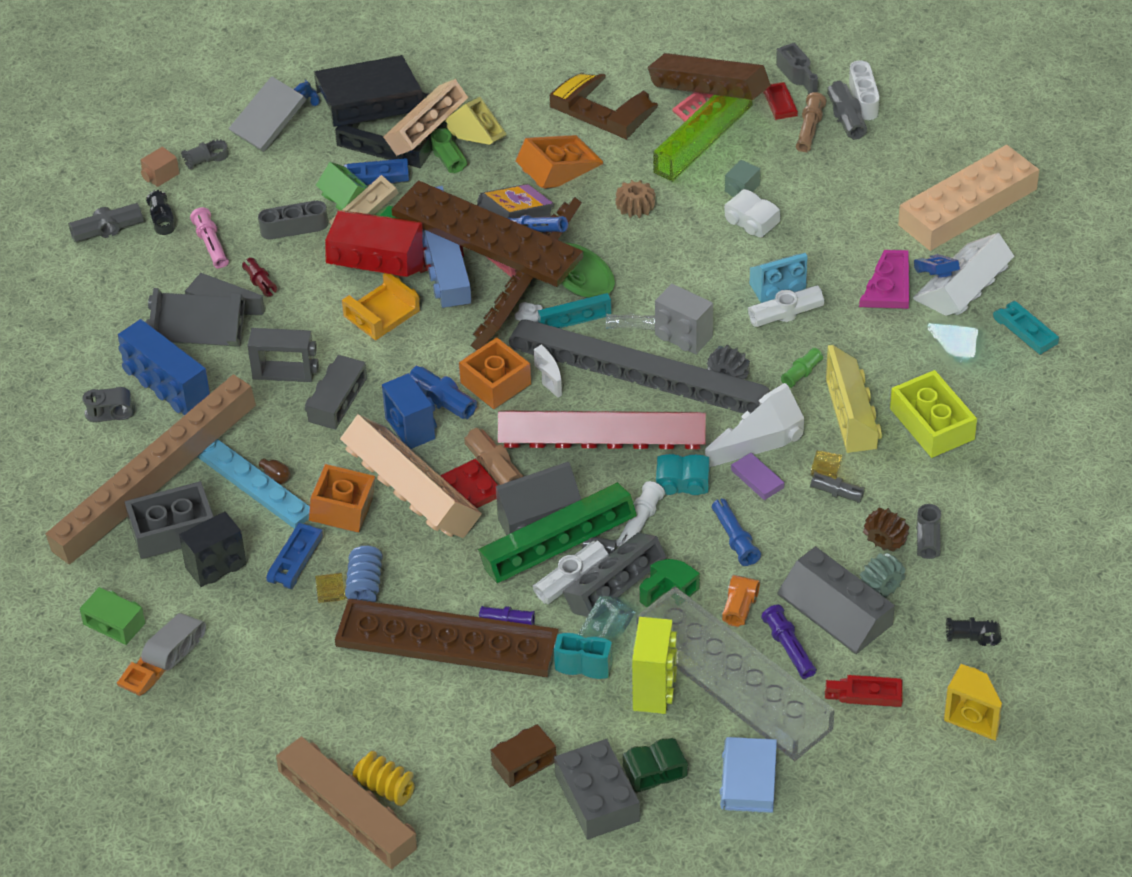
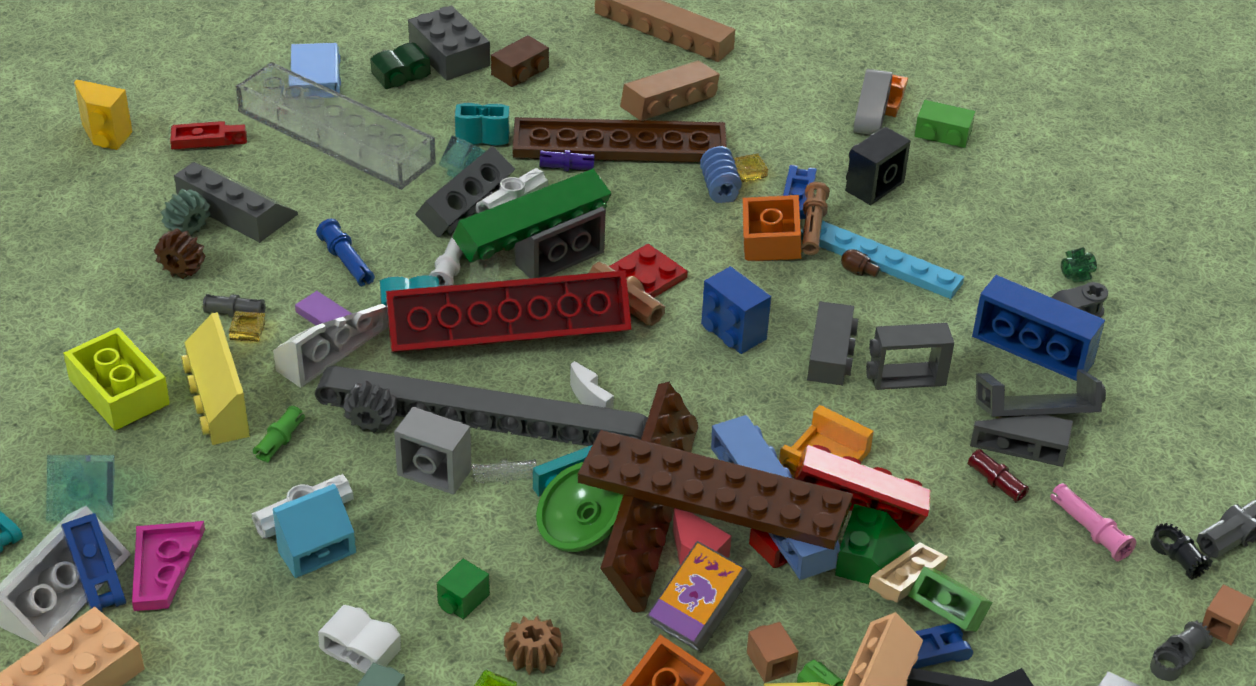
camera: 165 degrees right, 5 degrees down
(85, 439) = (1078, 265): none -> clear green gear
(151, 469) = (980, 234): medium nougat brick -> none
(162, 516) = (937, 194): dark grey brick -> none
(293, 219) = (996, 554): dark grey beam -> none
(295, 509) = (815, 209): none -> medium nougat pin
(377, 680) = (669, 90): none -> medium nougat brick
(384, 778) = (636, 36): yellow piece -> none
(410, 477) = (703, 238): light nougat brick -> none
(444, 392) = (710, 357): blue piece -> none
(476, 176) = (772, 651): none -> nougat brick
(495, 373) = (650, 362): orange brick -> none
(555, 224) = (665, 522): blue pin -> none
(653, 665) = (409, 88): neon yellow brick -> none
(665, 576) = (403, 200): green brick -> none
(676, 236) = (463, 589): none -> green brick
(740, 598) = (334, 195): orange piece -> none
(784, 633) = (287, 170): dark purple pin -> none
(928, 531) = (133, 269): dark grey piece -> none
(974, 631) = (95, 189): black connector -> none

